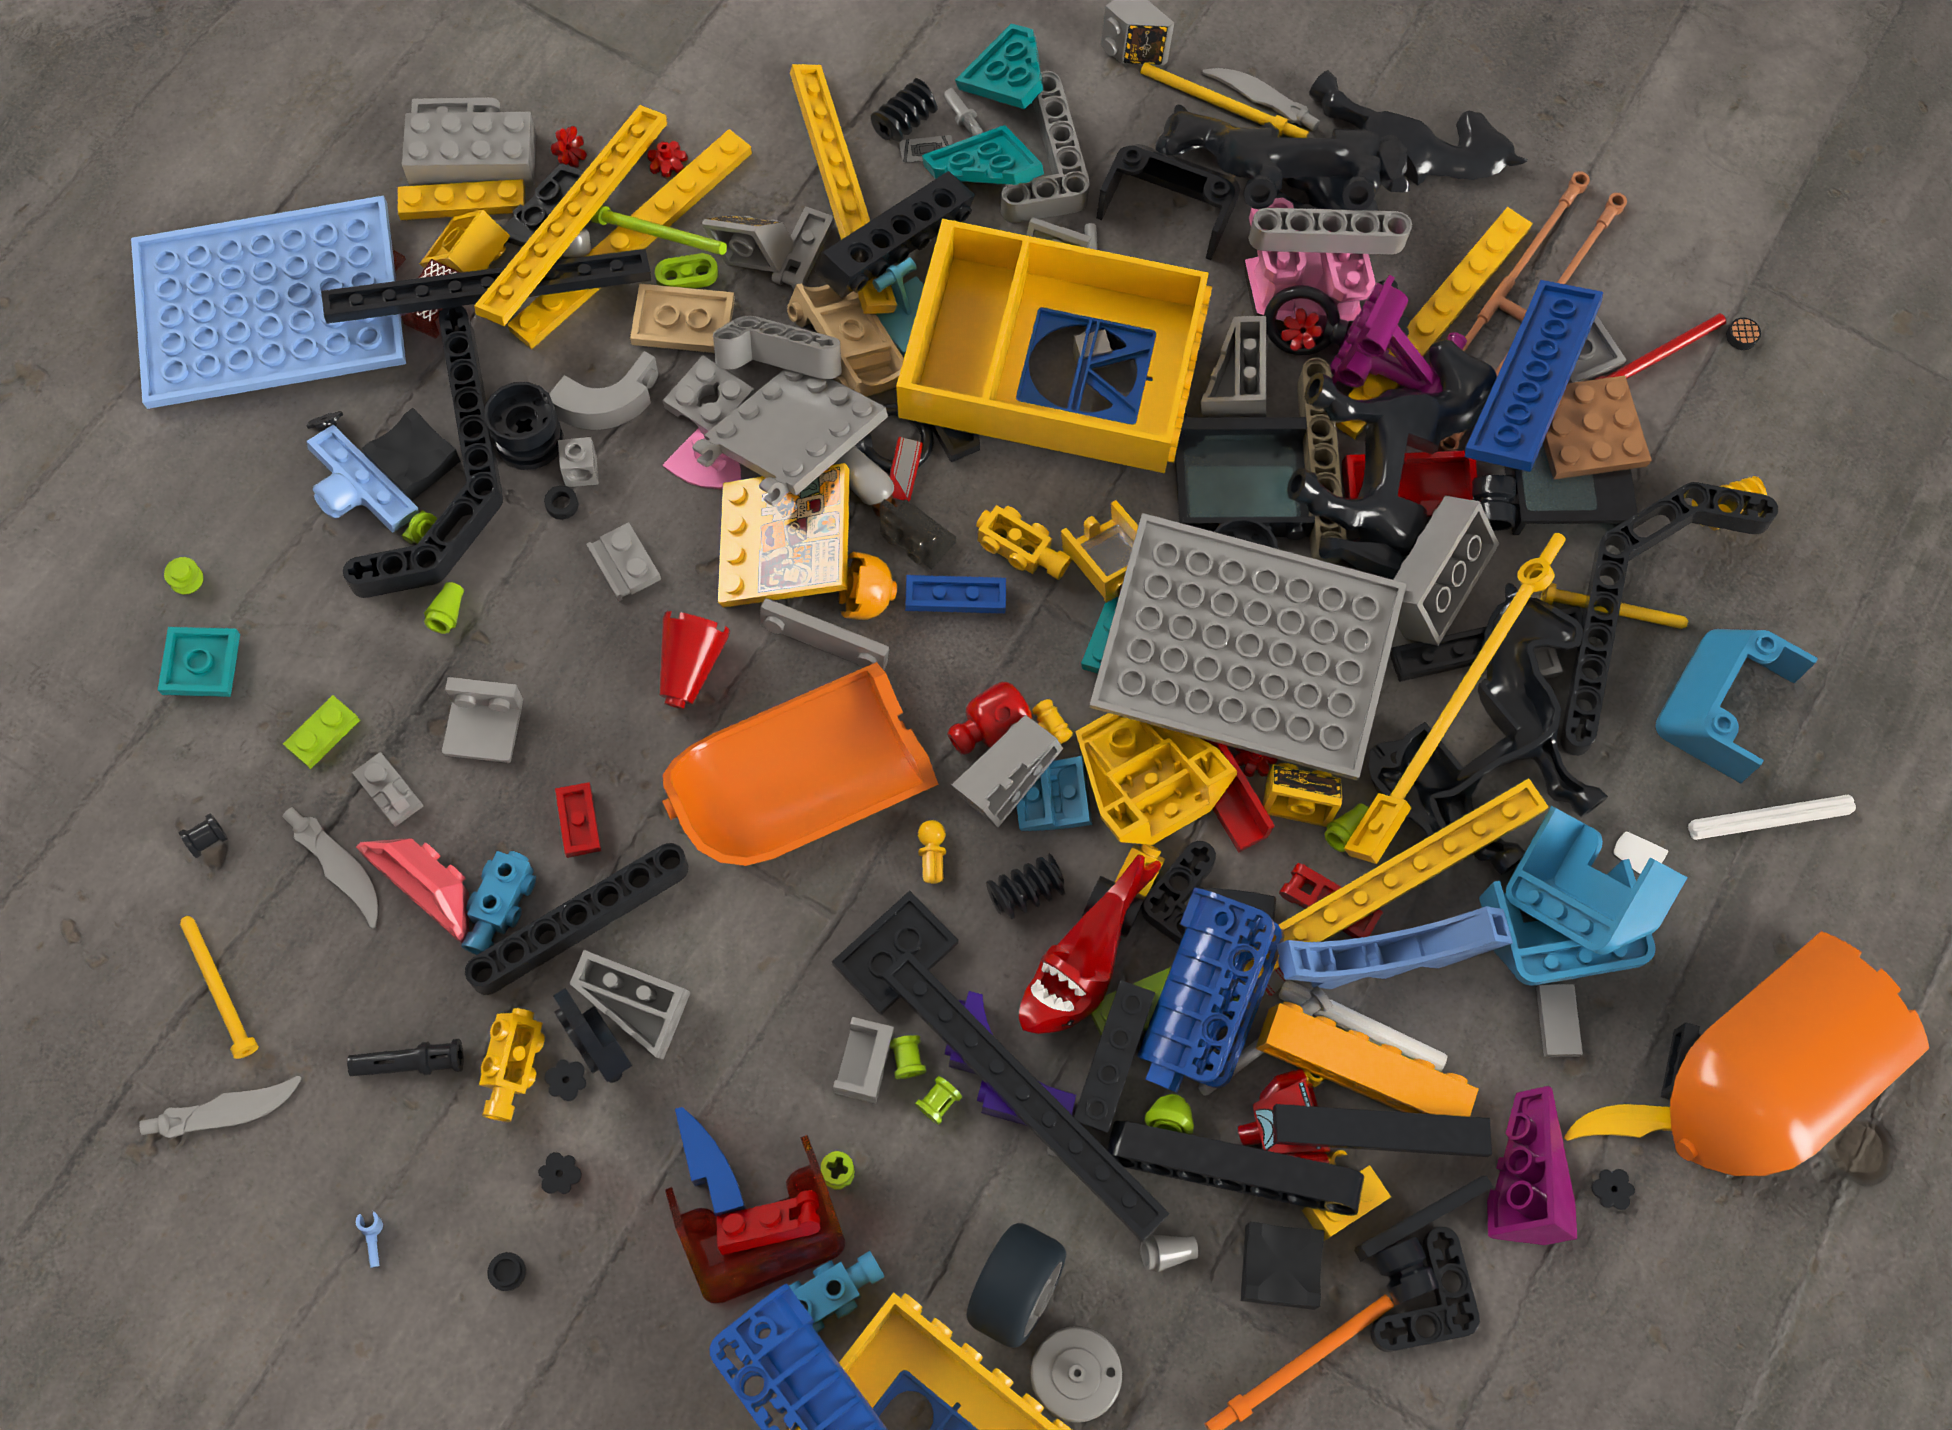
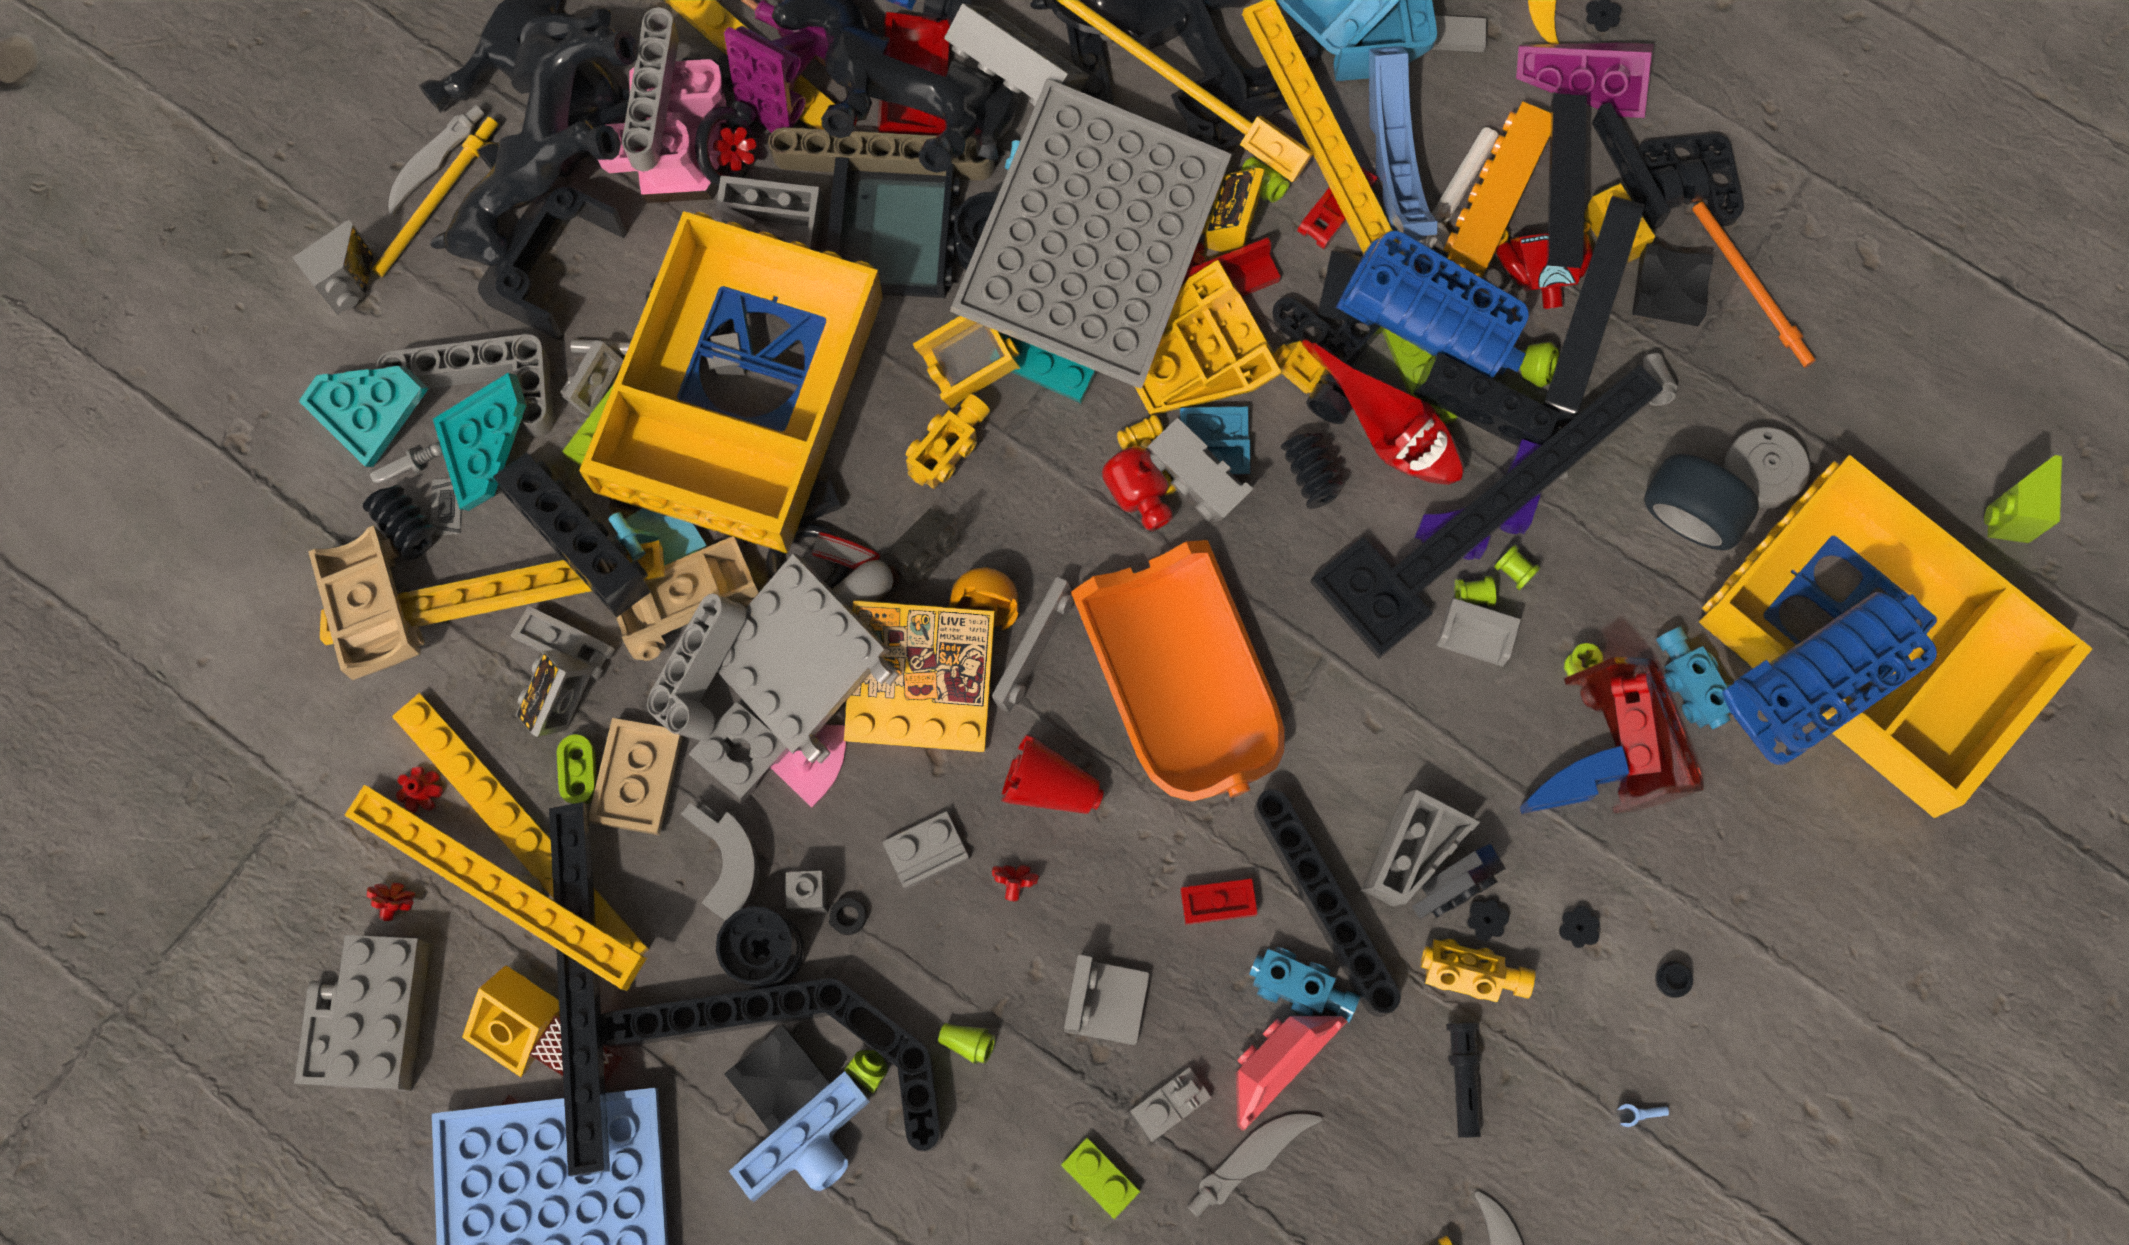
camera: 80 degrees left, 5 degrees up
(324, 421) = (719, 1183): black plant -> none
(460, 199) = (440, 1027): yellow plate -> none
(536, 210) = (474, 927): black wing -> none
(596, 636) = (1014, 879): none -> red plant
(605, 215) = (532, 787): lime bar -> none
(820, 88) = (364, 605): none -> tan piece
(932, 835) = (1252, 555): yellow axle -> none
(955, 594) = (995, 513): blue plate -> none

